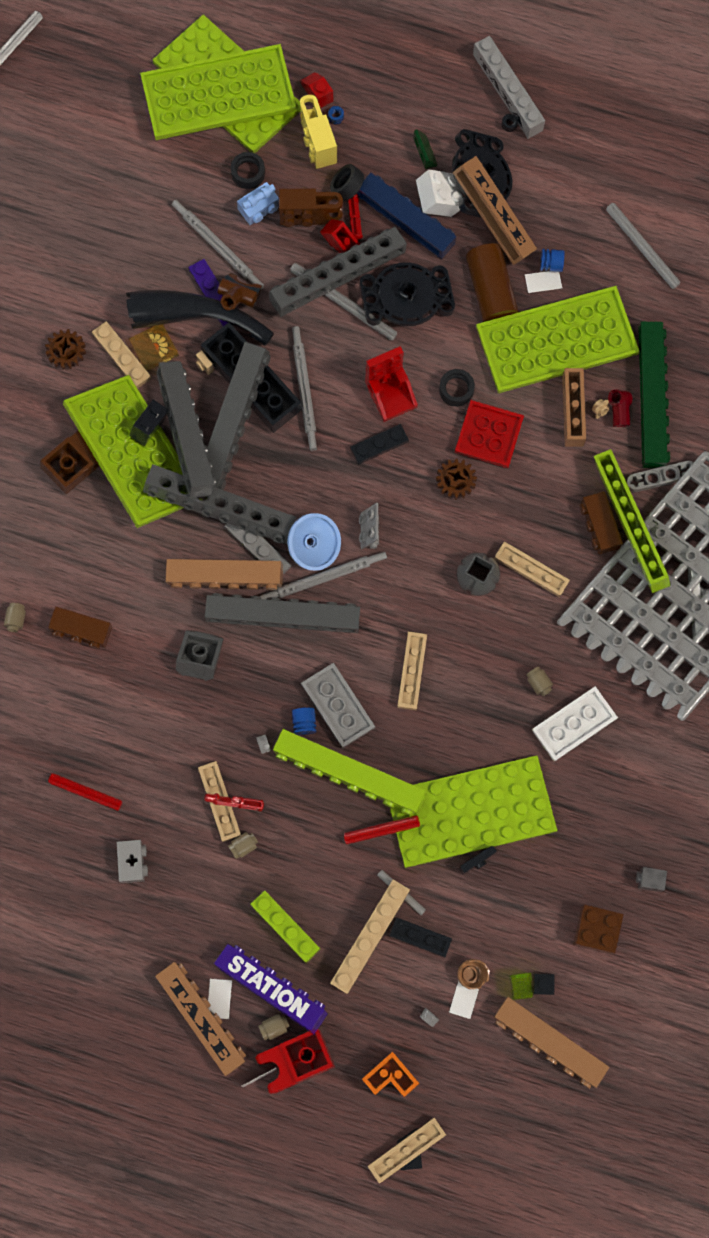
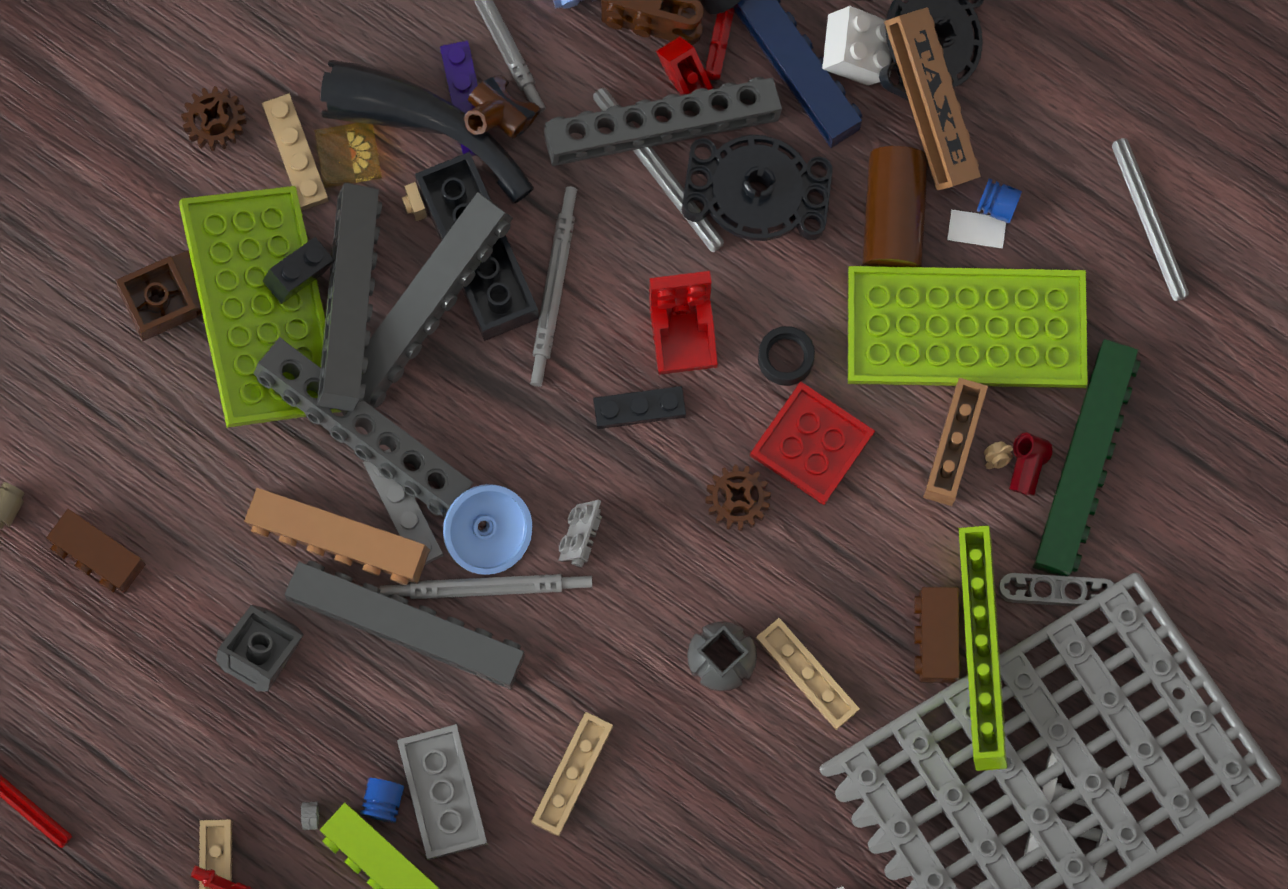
camera: 20 degrees right, 0 degrees up
(539, 681) = (761, 852): dark tan brick -> none

